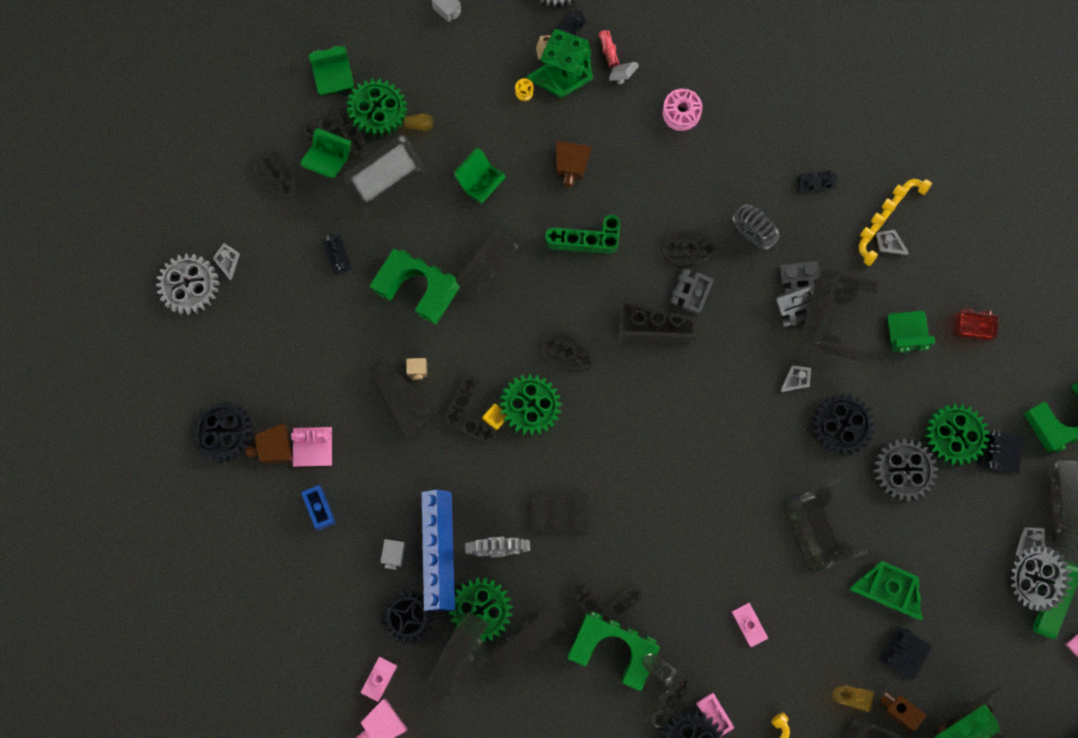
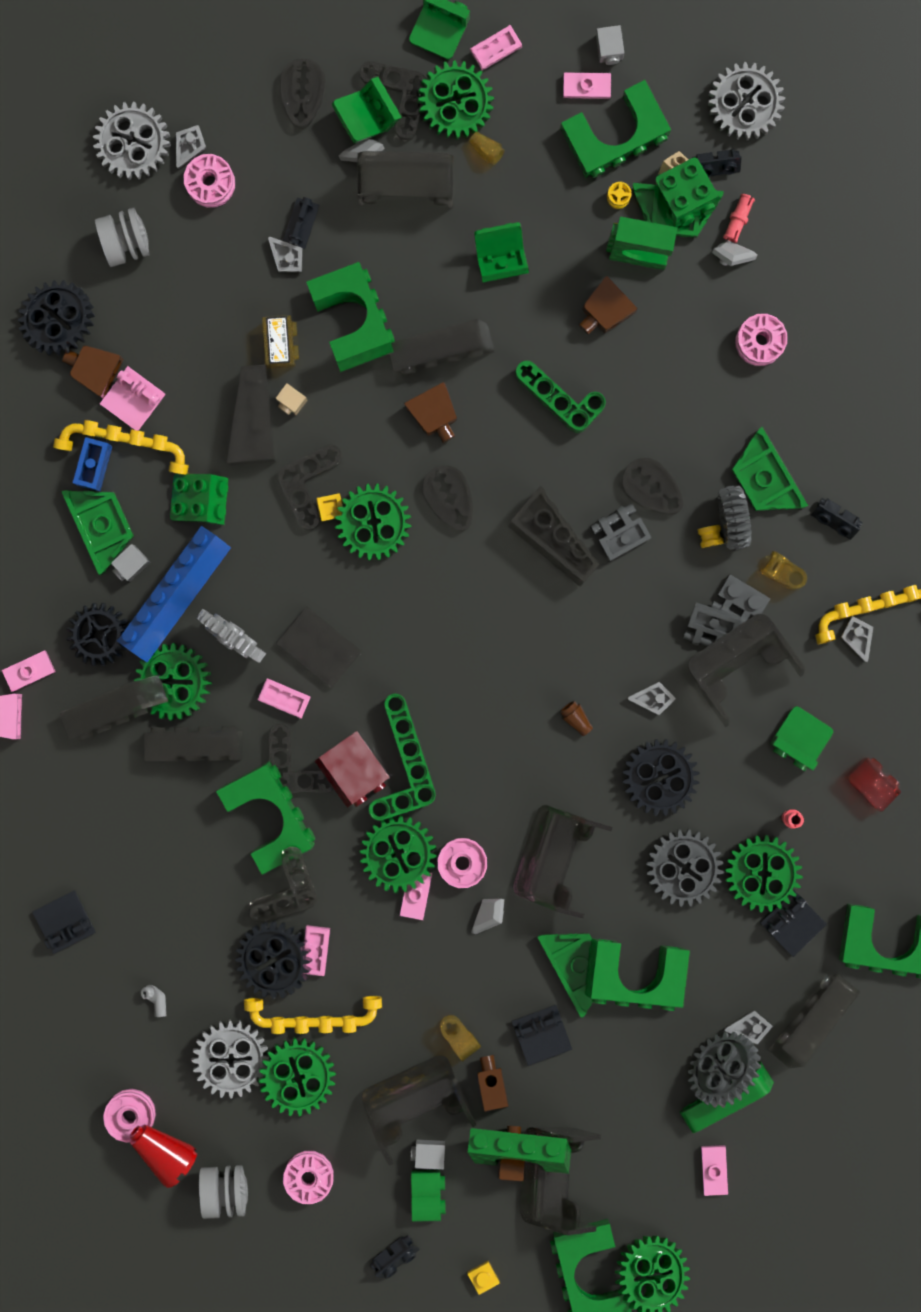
camera: 40 degrees right, 10 degrees up
(228, 347) = (122, 237): none -> light grey wheel
(249, 263) = (199, 170): none -> bright pink wheel
(318, 477) = (114, 433): none -> yellow bar
(338, 184) = (366, 145): none -> light grey piece
(343, 281) = (286, 256): none -> light grey piece
(354, 544) = (100, 525): none -> green wing
(377, 59) = (496, 47): none -> bright pink plate
(380, 337) = (279, 341): none -> brick
(405, 476) = (199, 498): none -> green bracket
(451, 40) = (587, 85): none -> bright pink plate
(490, 77) = (596, 156): none -> green arch
(514, 306) = (434, 412): none -> reddish brown torso
(562, 563) = (284, 698): none -> bright pink plate
(564, 102) = (641, 243): none -> green arch
(645, 574) = (352, 770): none -> brick
(676, 541) = (408, 761): none -> green beam
(710, 623) = (417, 844): none -> green gear
(749, 250) = (710, 536): none -> yellow wheel
(753, 188) = (766, 477): none -> green wing
(757, 428) = (576, 717): none -> reddish brown cone
(775, 577) = (458, 877): none -> bright pink wheel
(808, 600) = (489, 915): none -> light grey piece
(809, 238) = (783, 571): none -> clear yellow piece
(947, 384) = (798, 818): none -> coral pin
(958, 558) = (665, 989): none -> green arch

